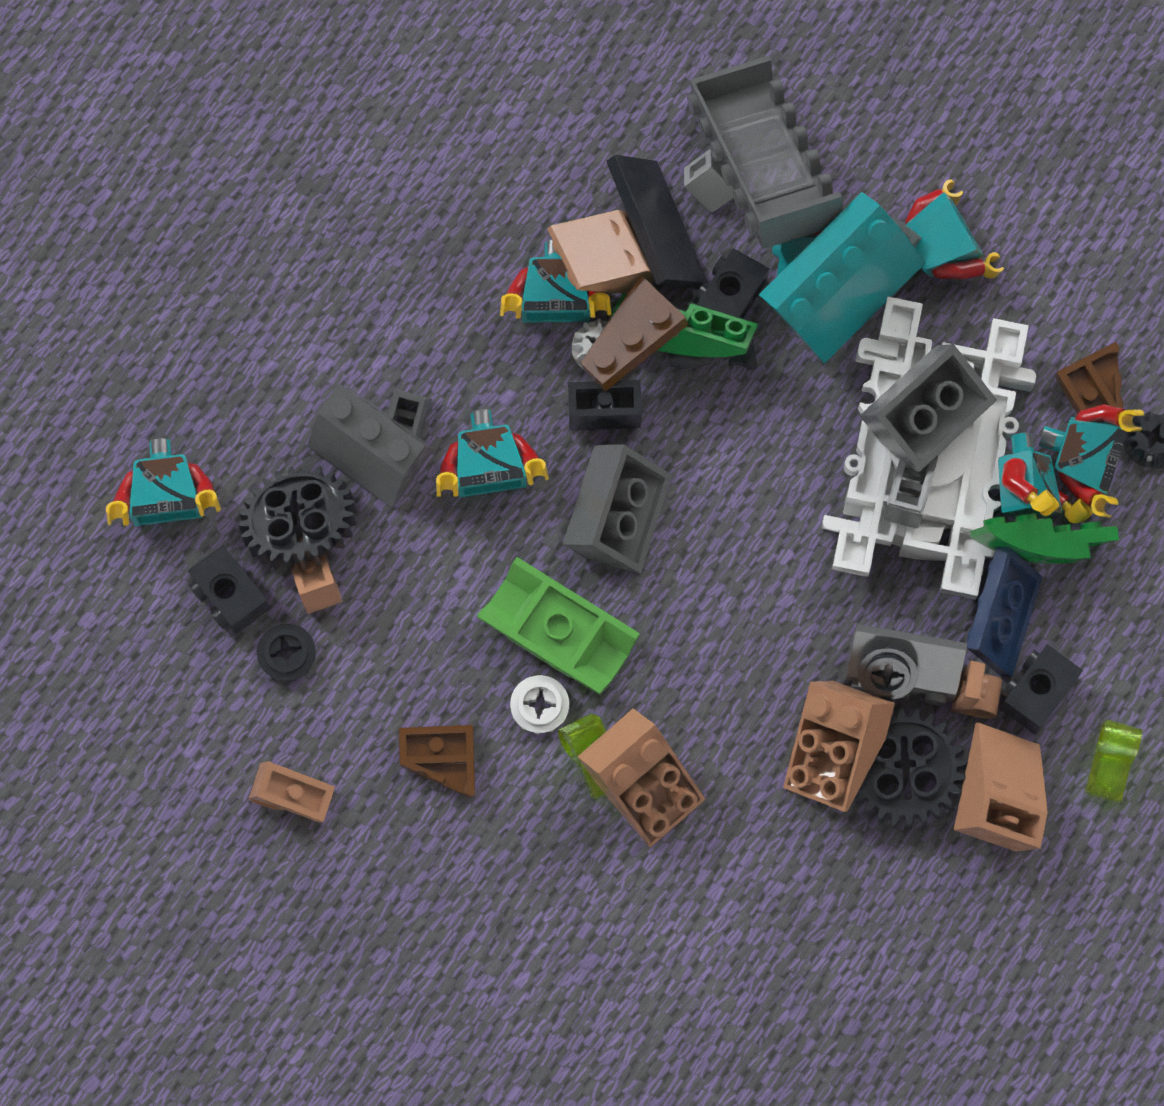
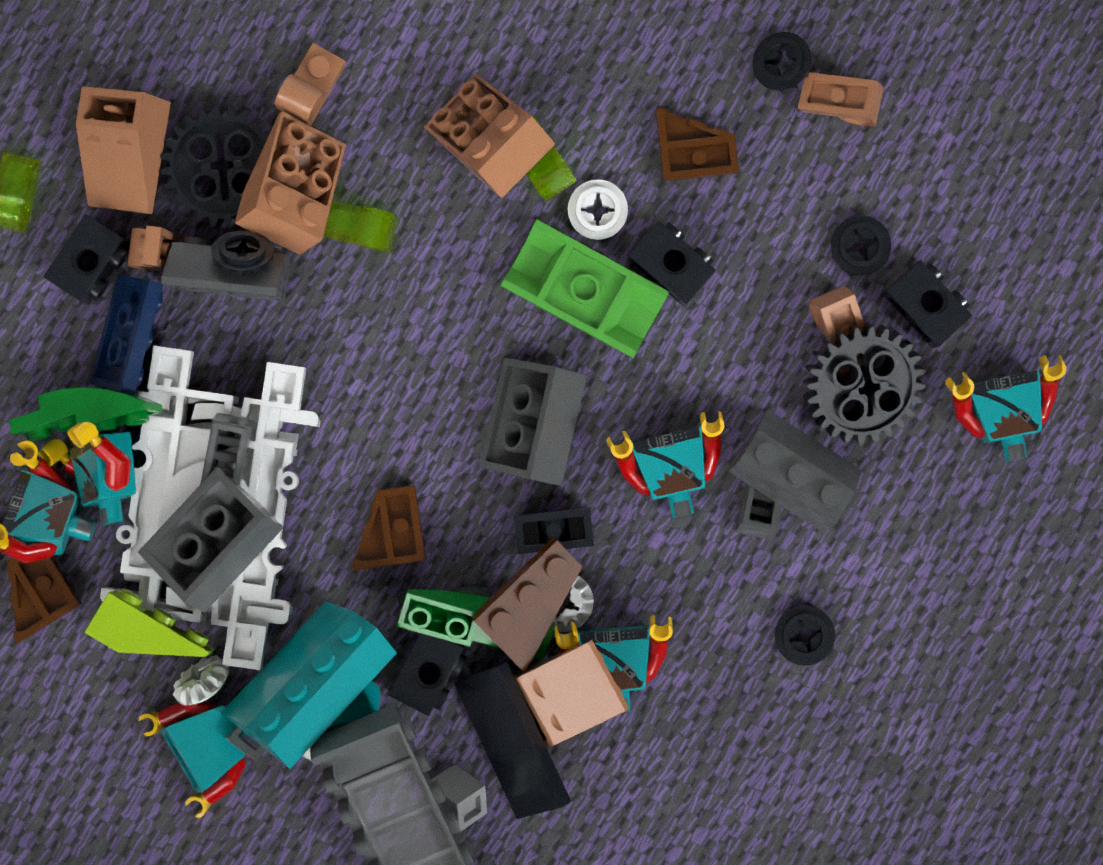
camera: 175 degrees right, 15 degrees up
(358, 820) = (771, 51): none -> black gear
(386, 289) = (820, 643): none -> black gear
(464, 625) = (649, 259): none -> black brick
(758, 419) = (392, 531): none -> reddish brown wing
(769, 703) = (361, 226): none -> clear neon green plate
(814, 845) = (308, 89): none -> nougat plate
(932, 294) = (201, 681): none -> white gear
(997, 332) = (133, 628): none -> lime slope

